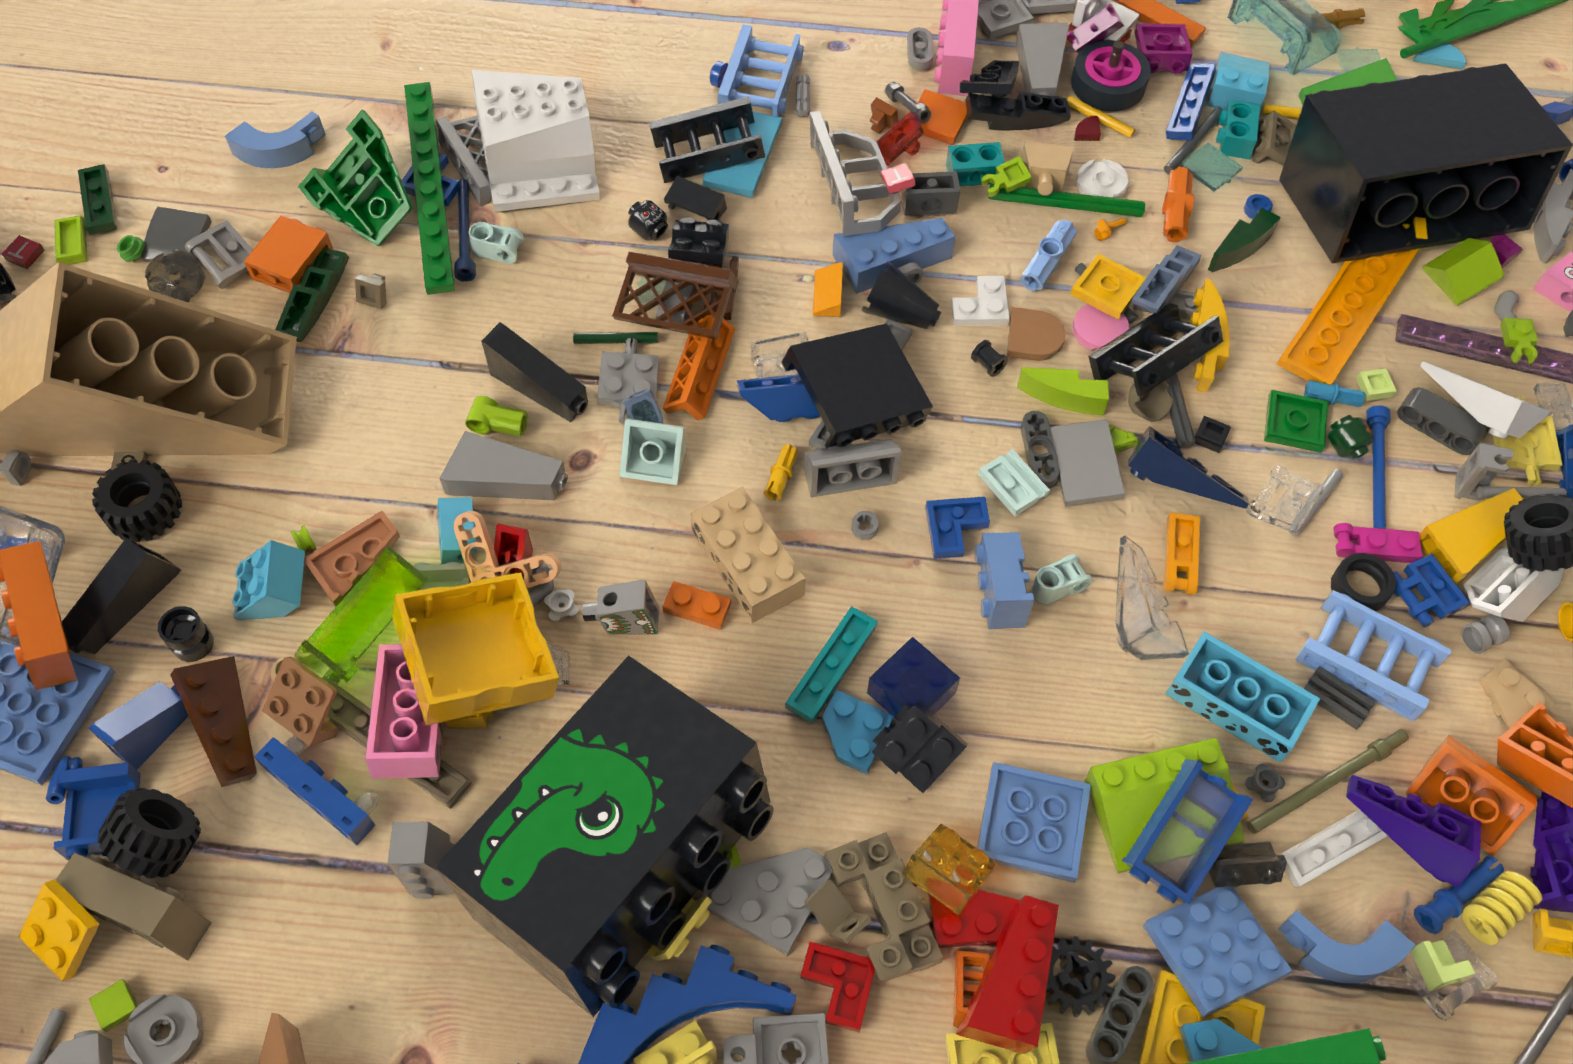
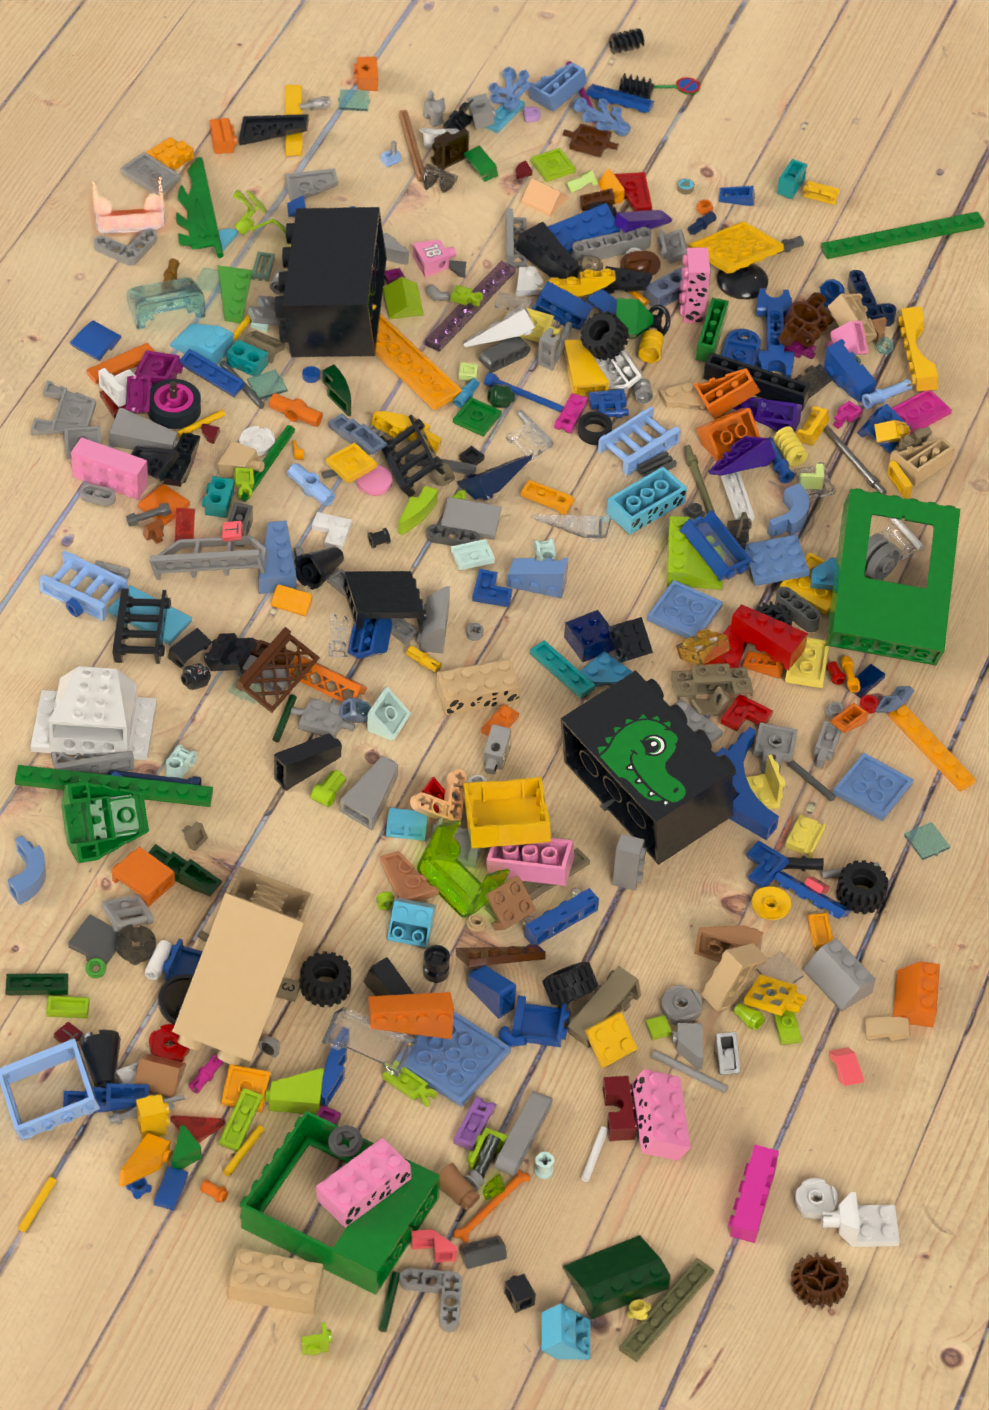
camera: 75 degrees left, 10 degrees down
(1034, 334) = (367, 512): medium nougat tile -> none
(1498, 32) = (246, 222): none -> lime plant

